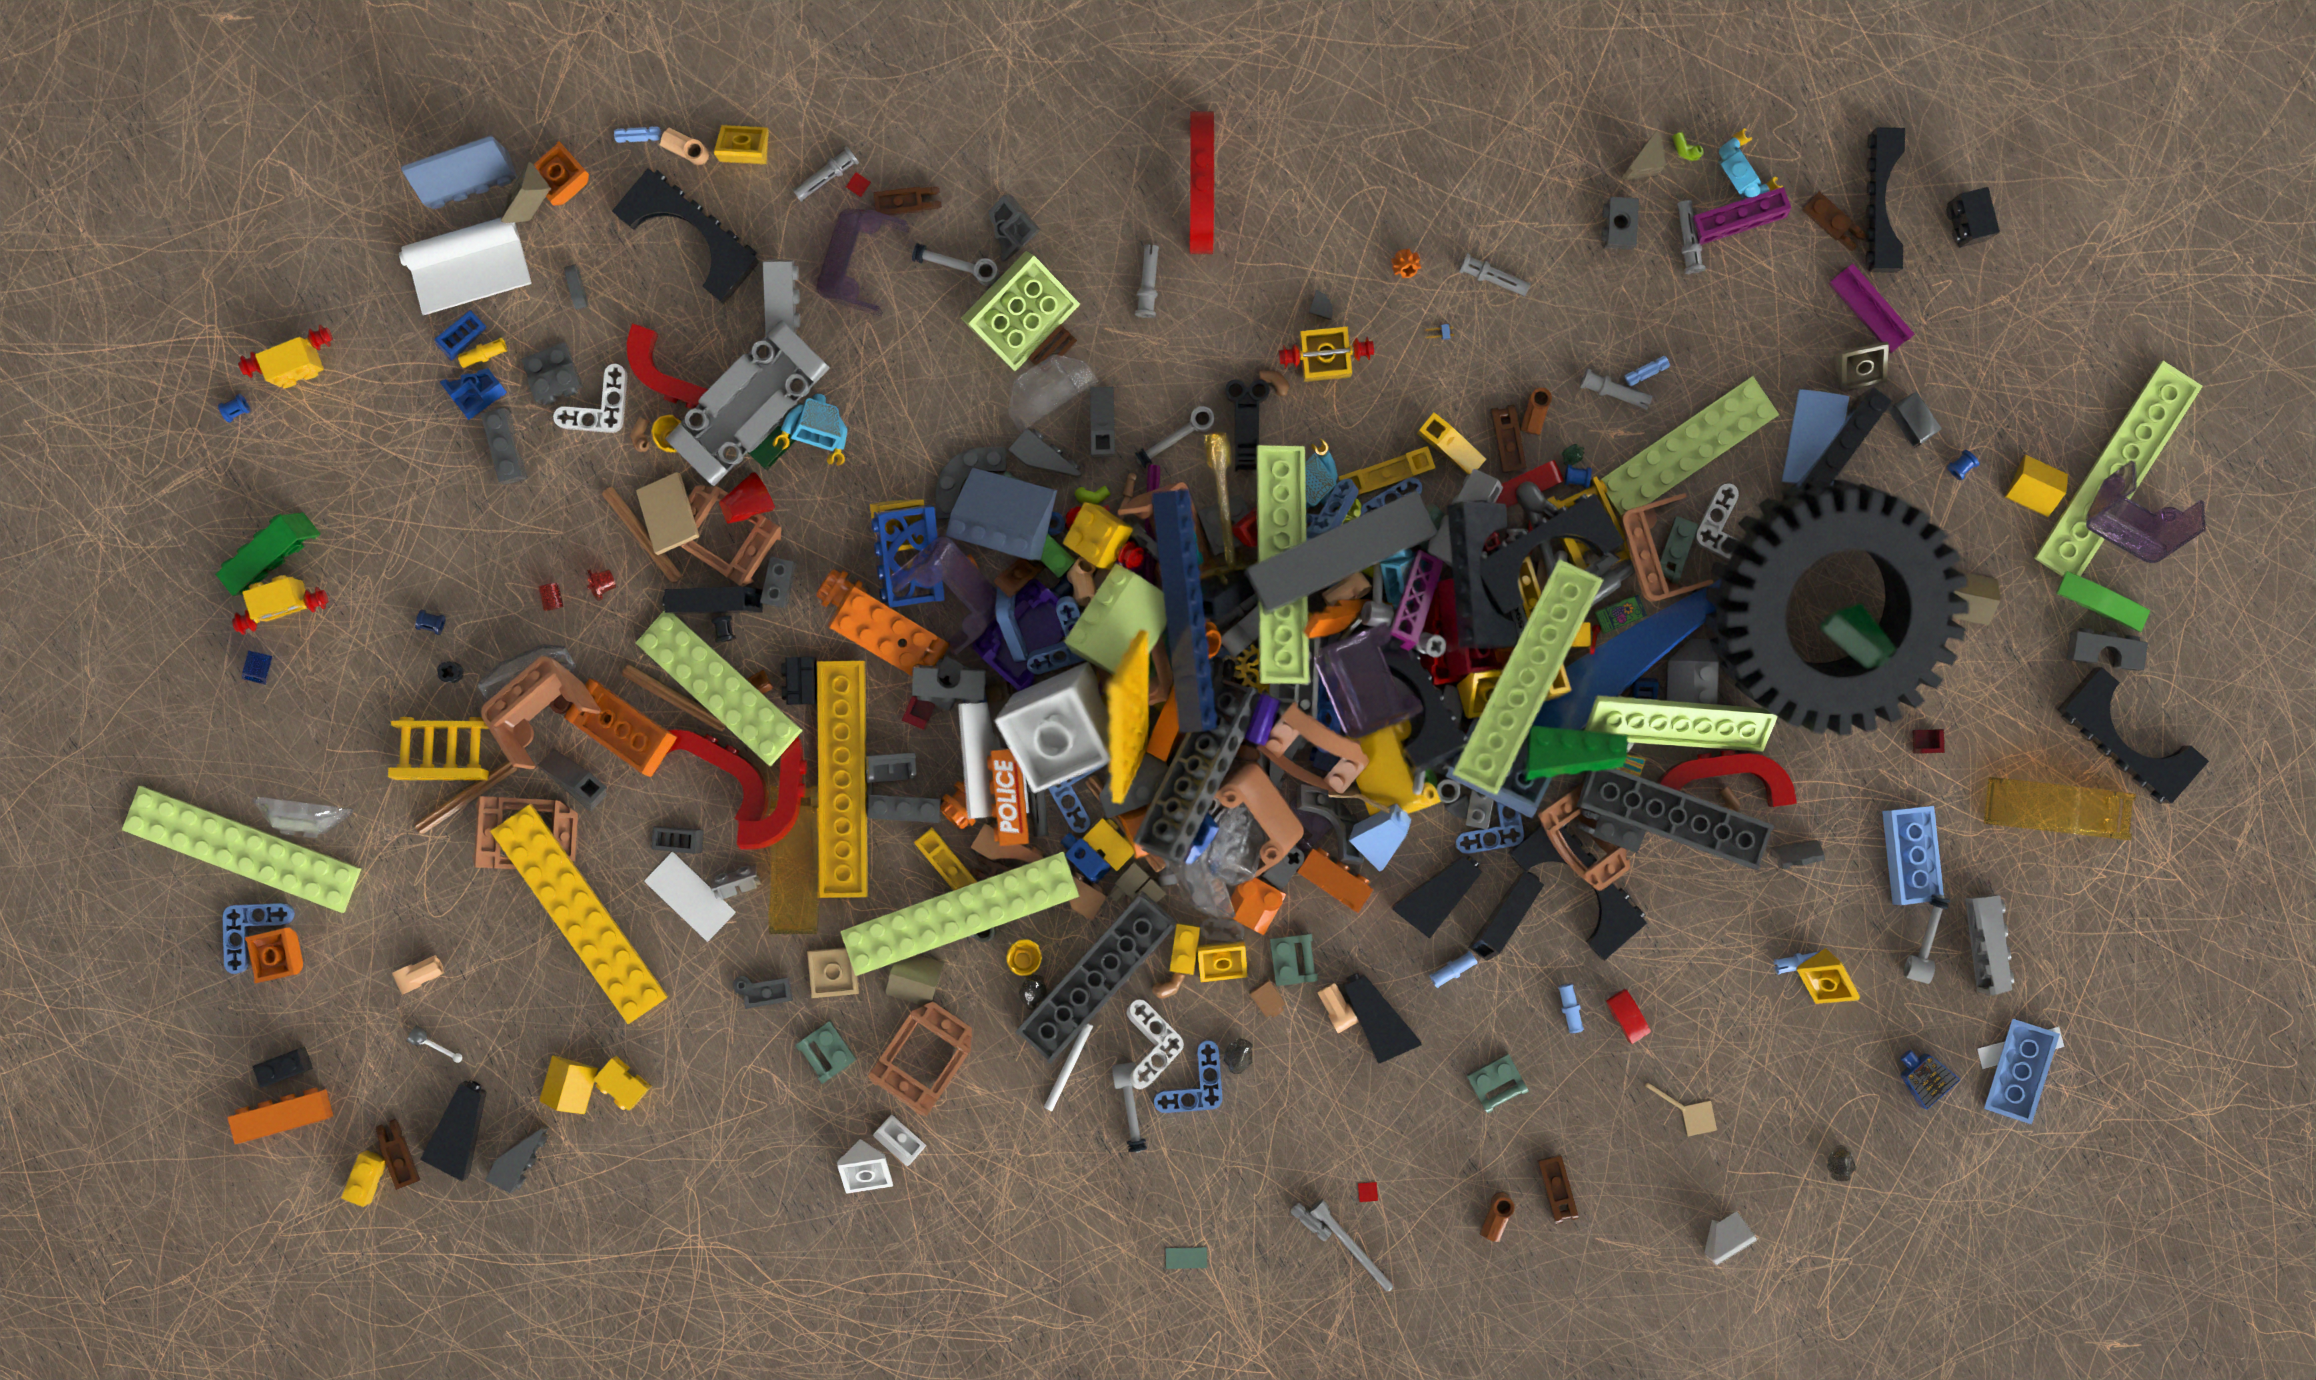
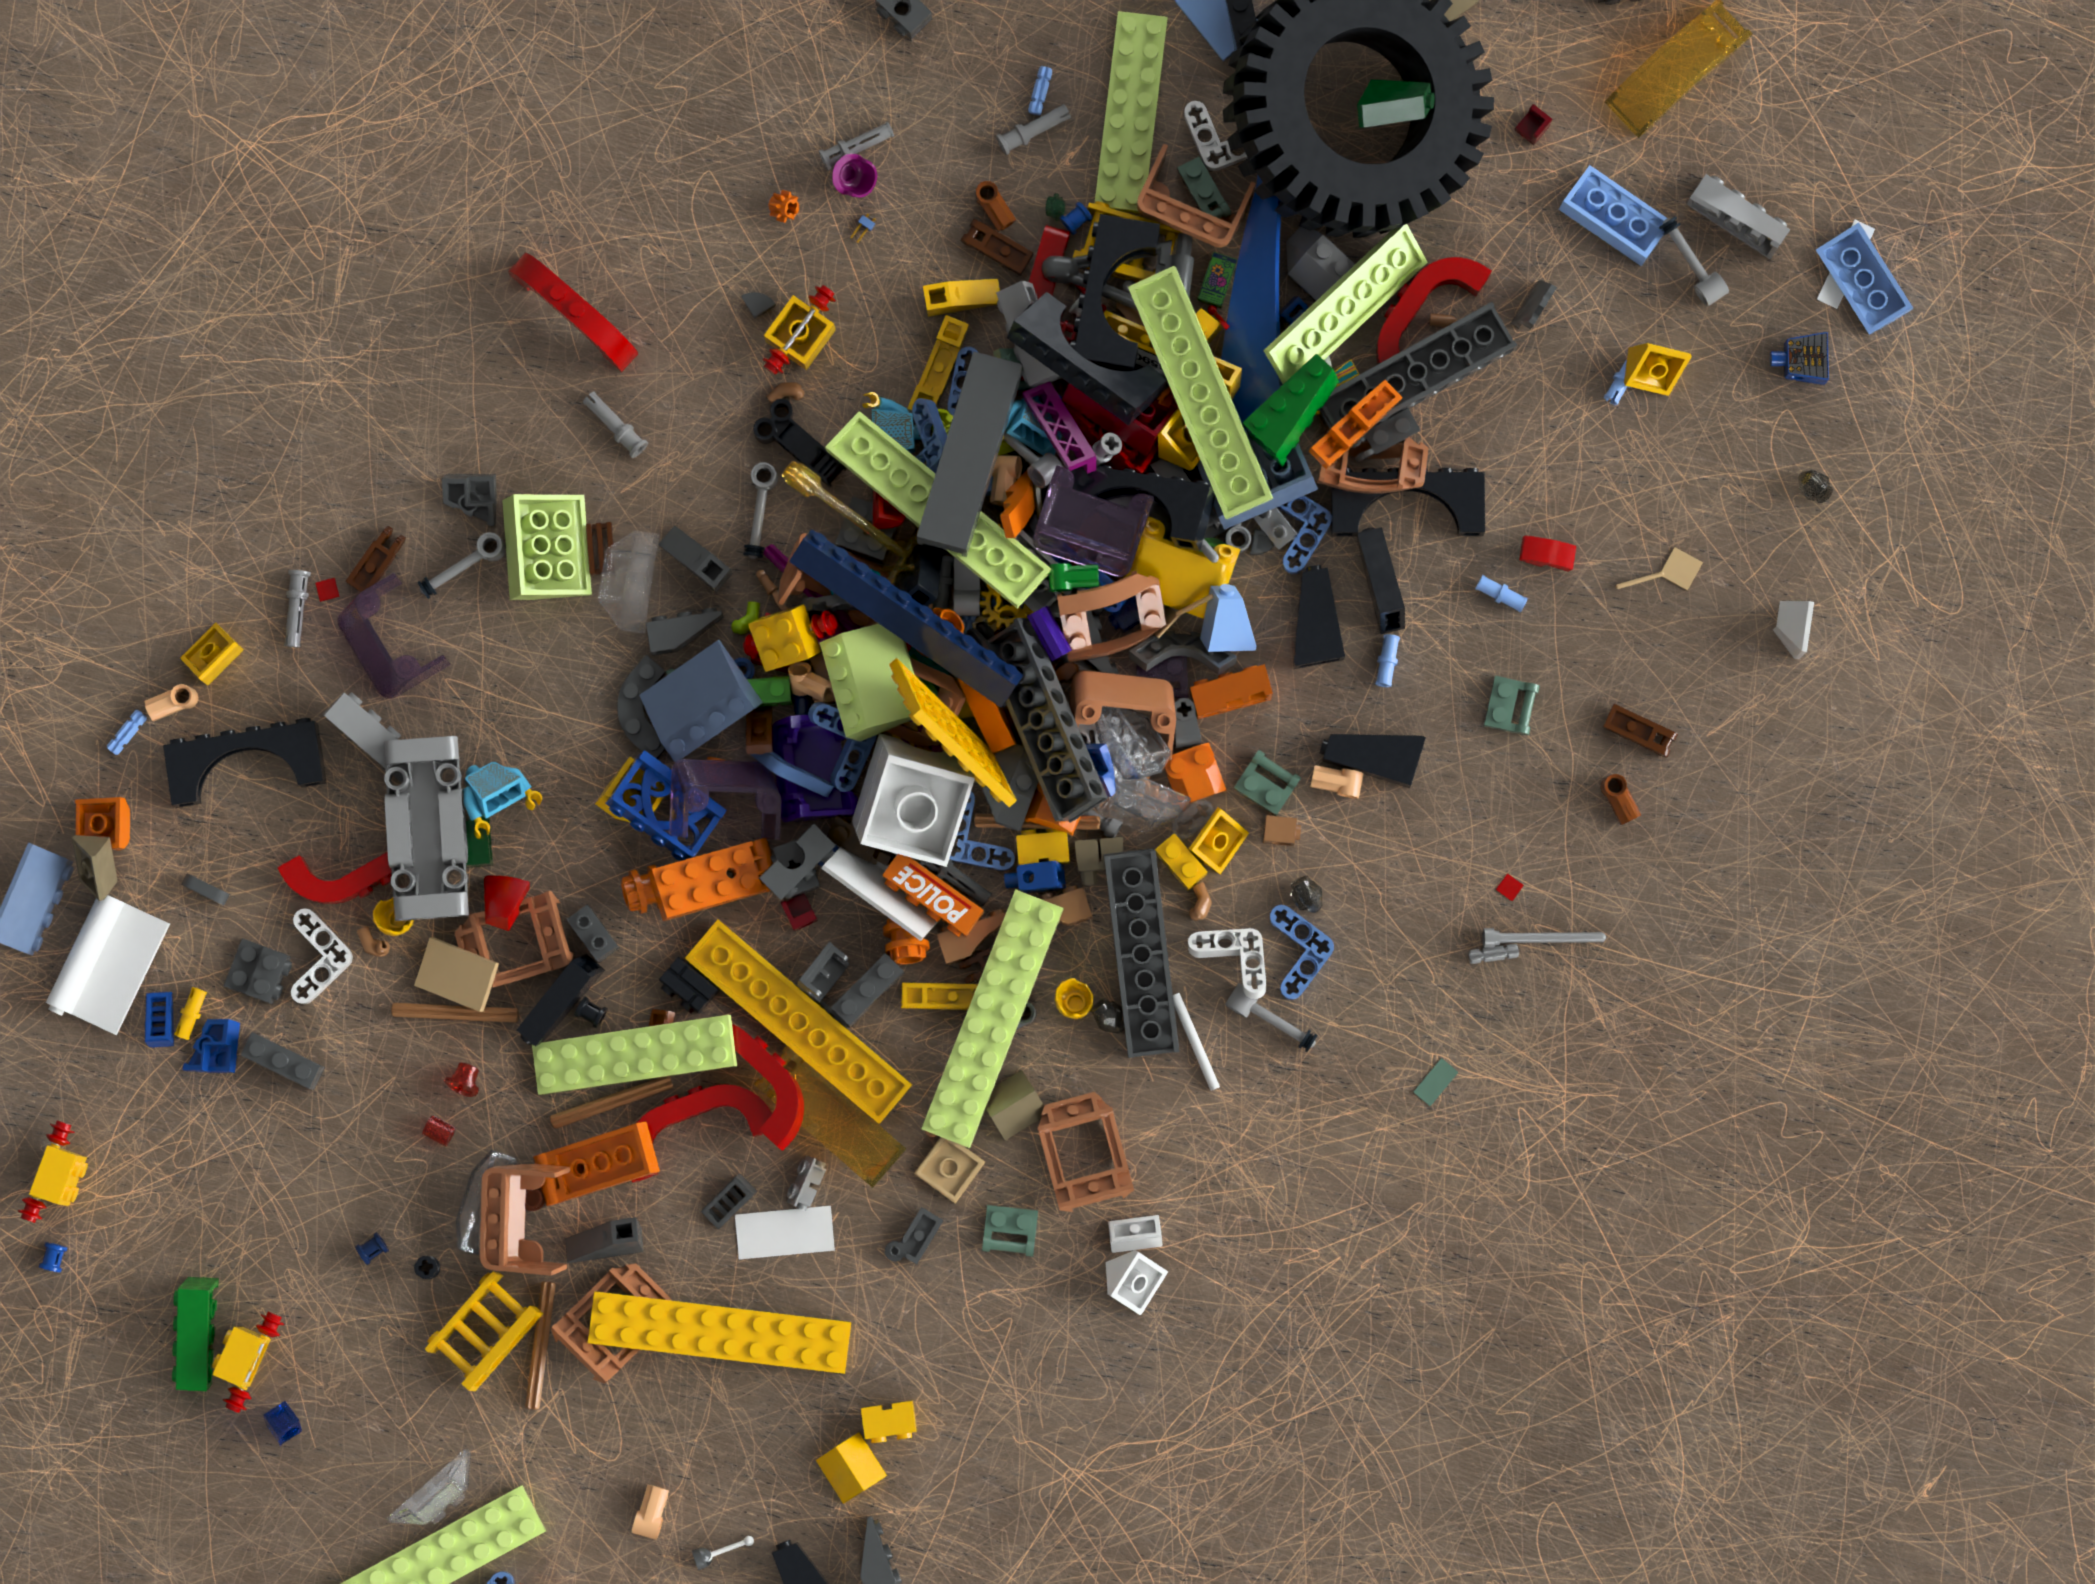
camera: 45 degrees left, 5 degrees down
(1313, 698) = (1066, 577): none -> green piece
(1470, 294) = (854, 176): none -> magenta helmet
(1601, 806) = (1355, 424): none -> orange slope

